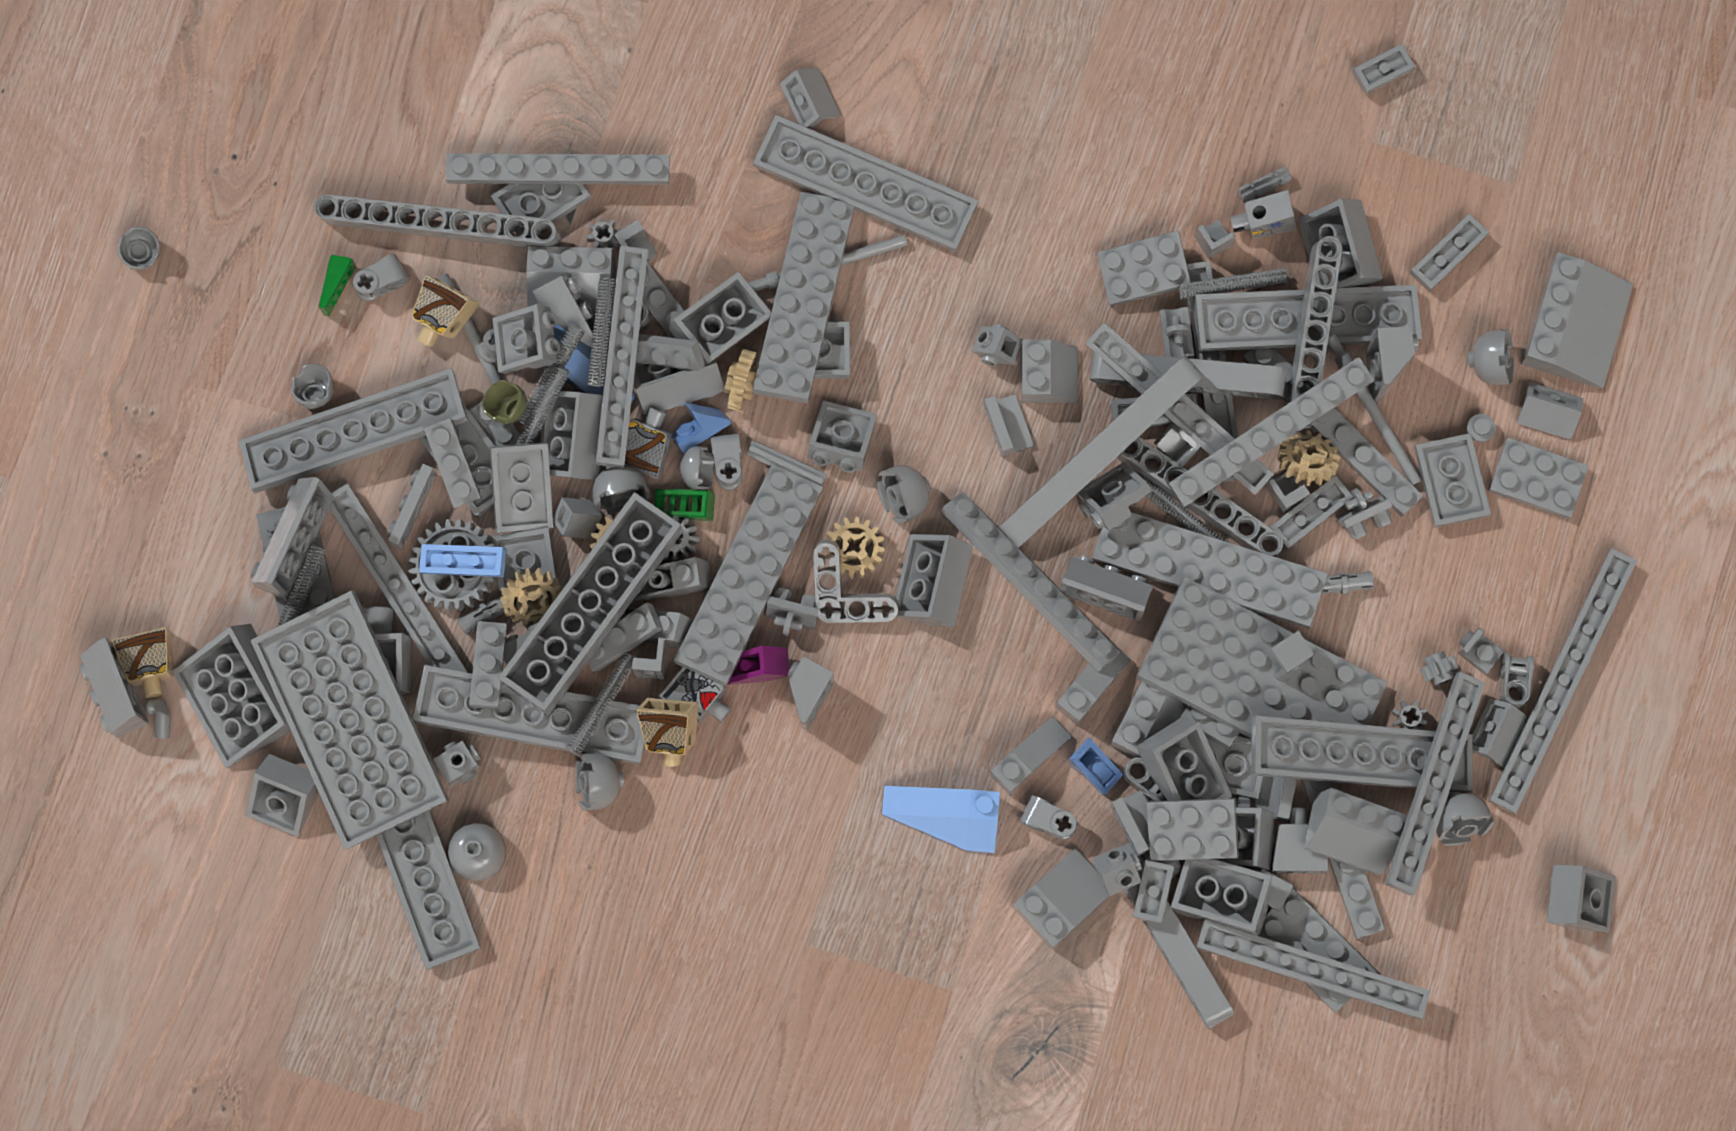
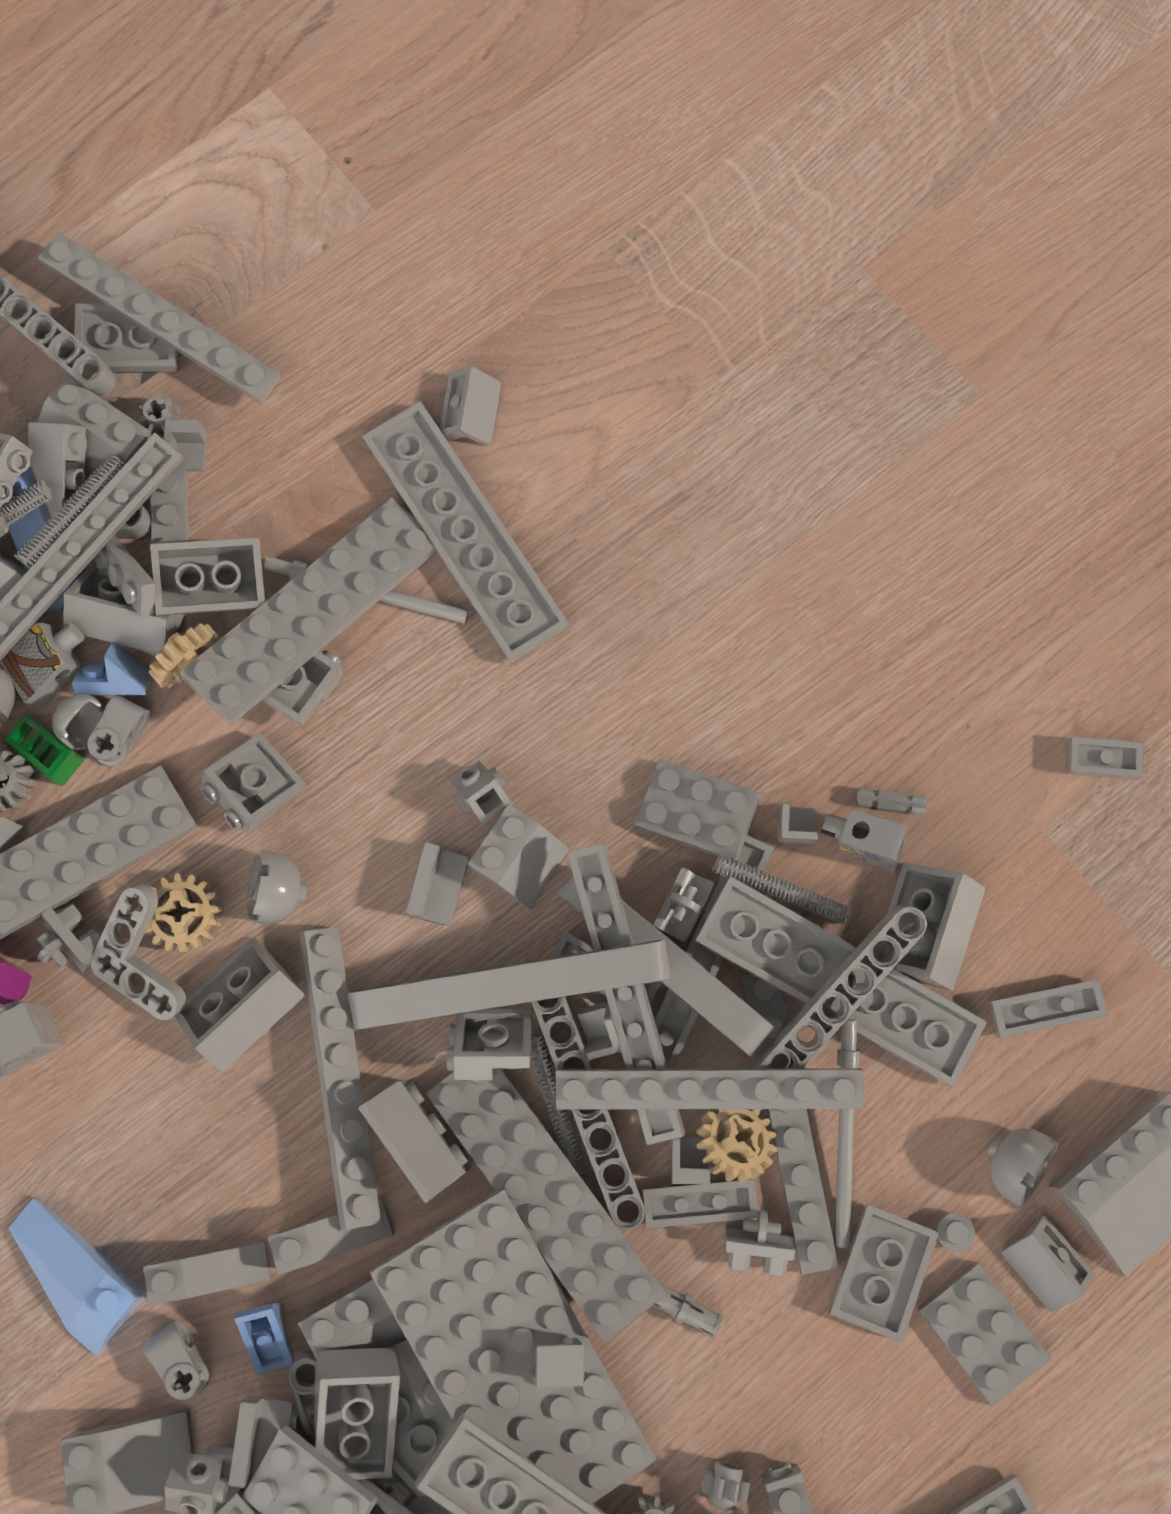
camera: 30 degrees right, 0 degrees up
(770, 456) = (180, 779): light grey axle -> none
(1388, 357) = (899, 1091): light grey slope -> none

